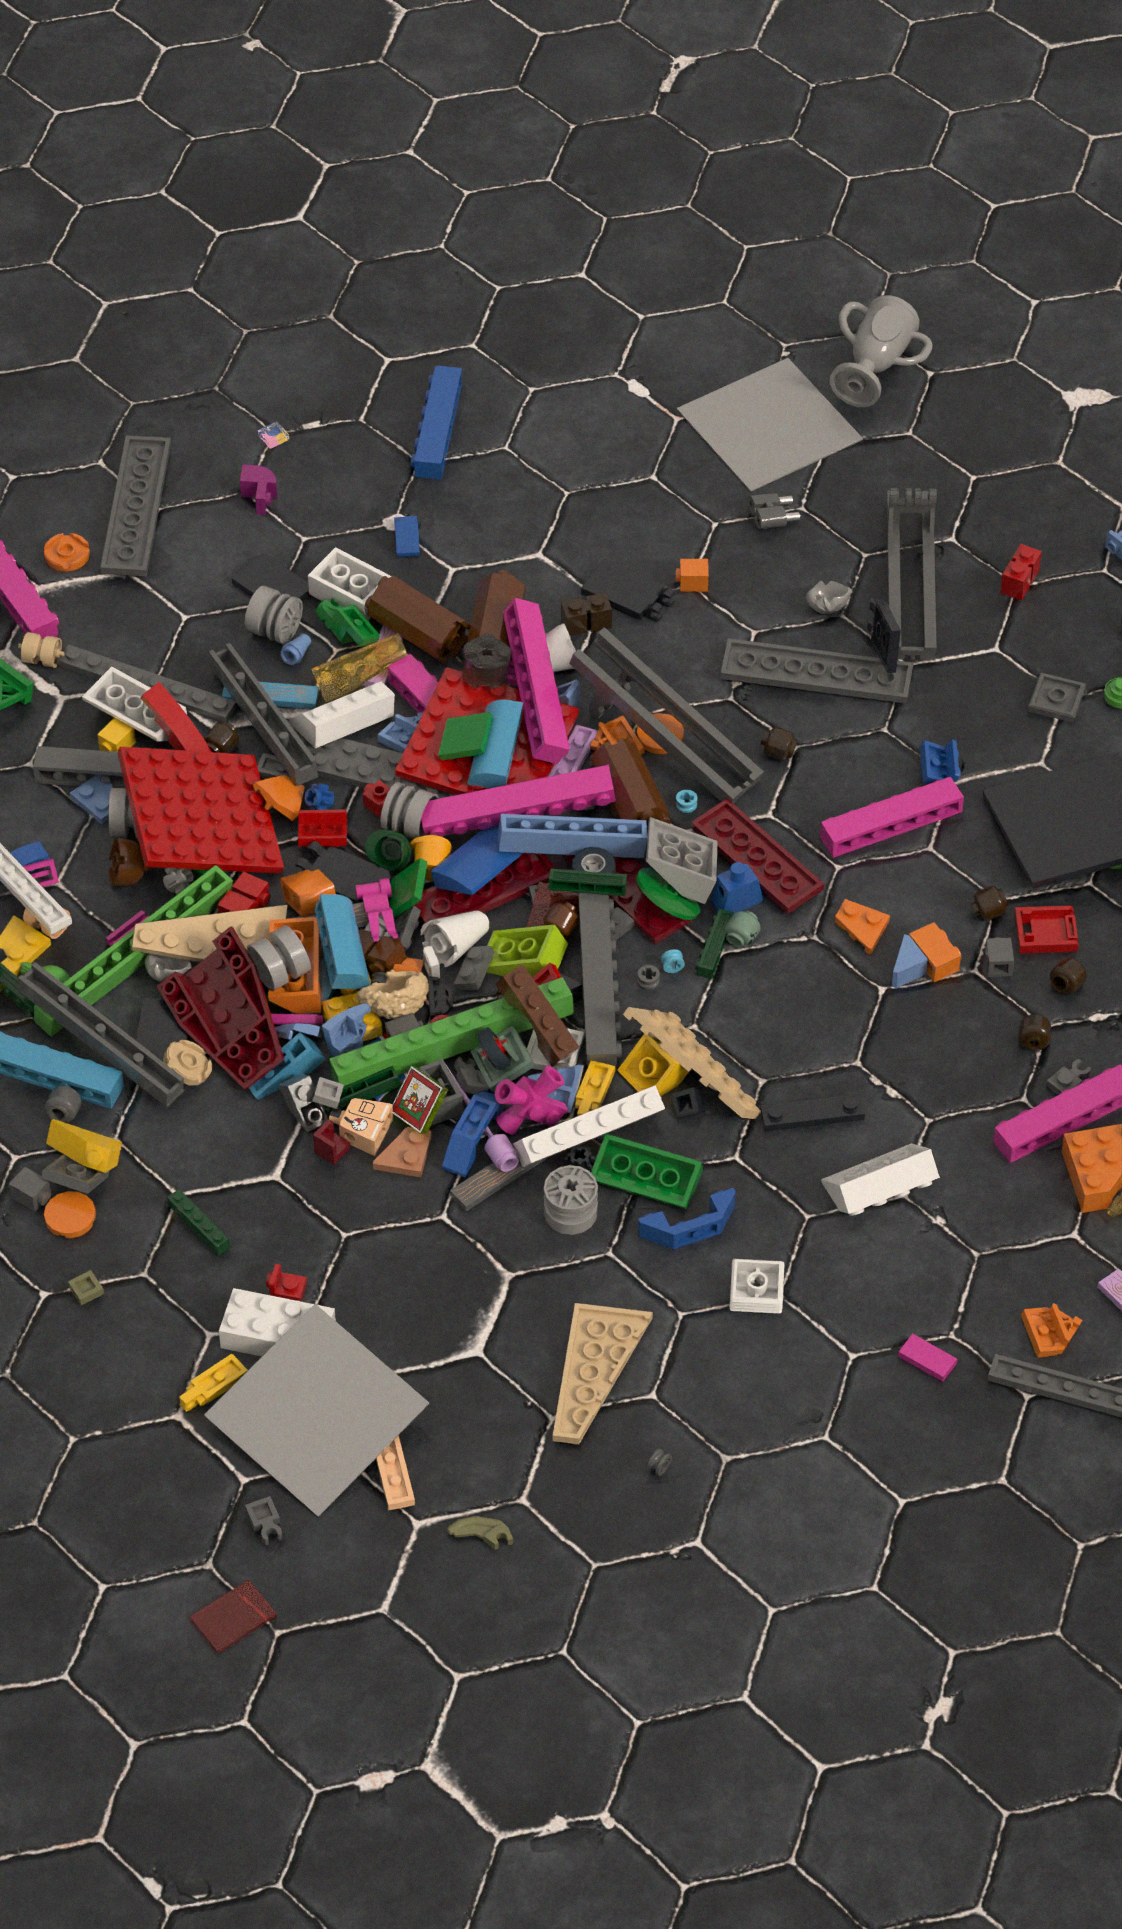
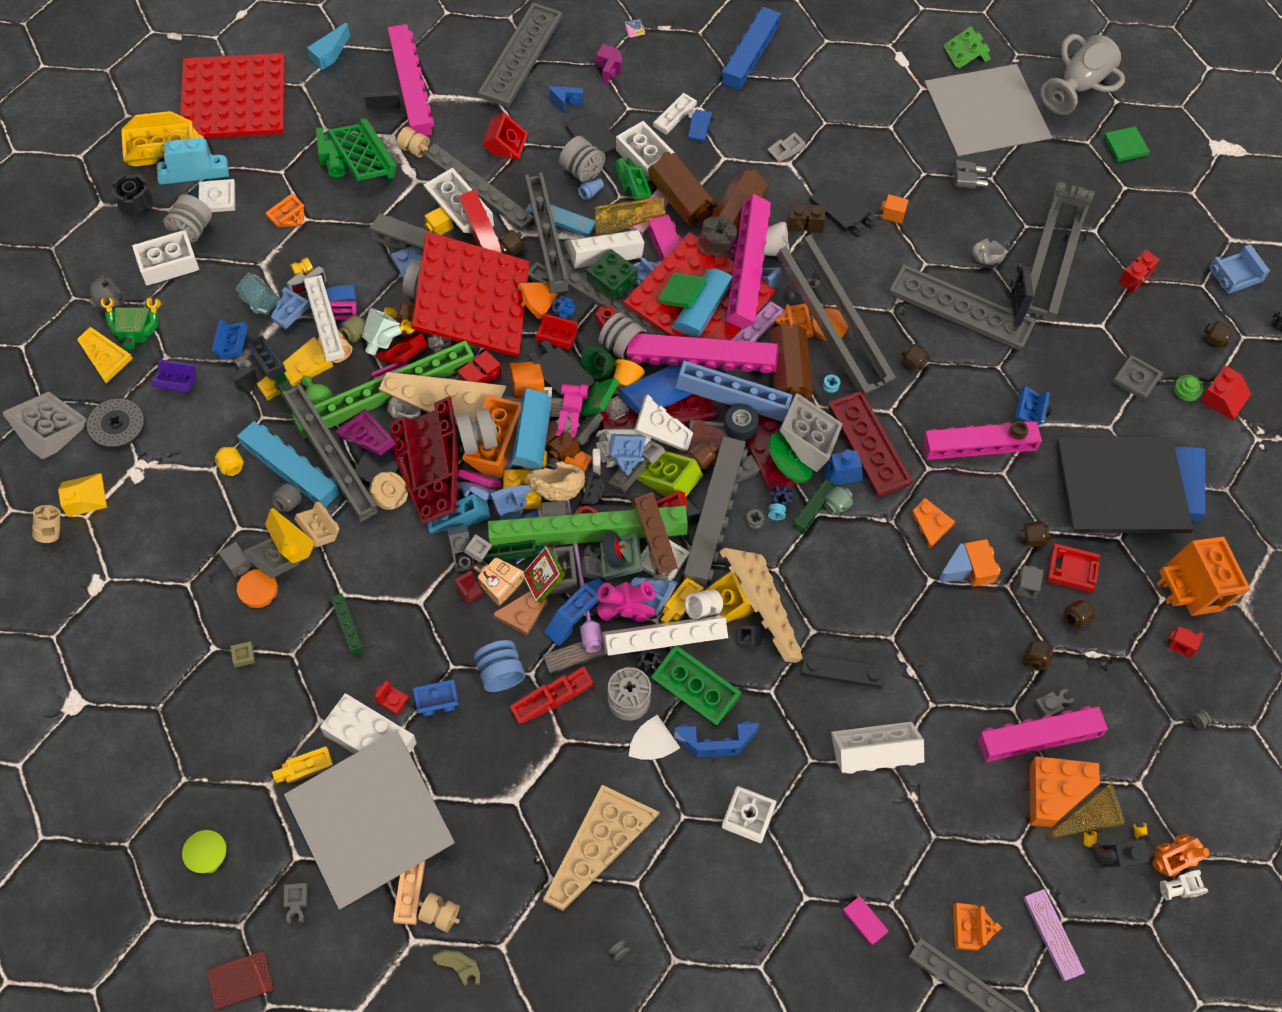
camera: 15 degrees right, 10 degrees up
(63, 890) = (352, 328): none -> olive head
(66, 552) = (461, 75): orange tile -> none
(101, 881) = (381, 329): none -> light aqua torso
(117, 1122) = (318, 525): none -> tan bracket
(133, 1502) = (204, 851): none -> lime dish
(135, 900) = (404, 349): none -> red slope
(135, 1005) = (367, 433): none -> magenta wing
(159, 614) = (505, 137): none -> red slope
(213, 544) = (565, 95): none -> blue slope
(340, 1267) = (435, 696): none -> blue bracket
(368, 529) = (674, 113): none -> white tile
(368, 742) = (612, 274): none -> dark green brick
(405, 1211) = (499, 666): none -> medium blue wheel
(432, 1481) = (438, 912): none -> tan wheel
(433, 896) = (616, 408): none -> clear plate
(467, 937) = (626, 450): none -> medium blue slope
(479, 1229) = (552, 696): none -> red slope
(495, 899) = (660, 426): none -> white wing
(495, 933) = (652, 451): none -> light grey plate
(530, 535) = (785, 149): none -> light grey slope
(588, 882) = (731, 432): dark green piece -> none
(615, 1246) = (652, 741): none -> white sticker
(622, 1081) = (703, 604): none -> white wheel
(667, 935) = (778, 491): none -> dark blue gear
(717, 353) = (966, 47): none -> bright green bracket
(932, 790) = (1018, 430): none -> dark brown plate
(958, 423) = (1126, 144): none -> green tile

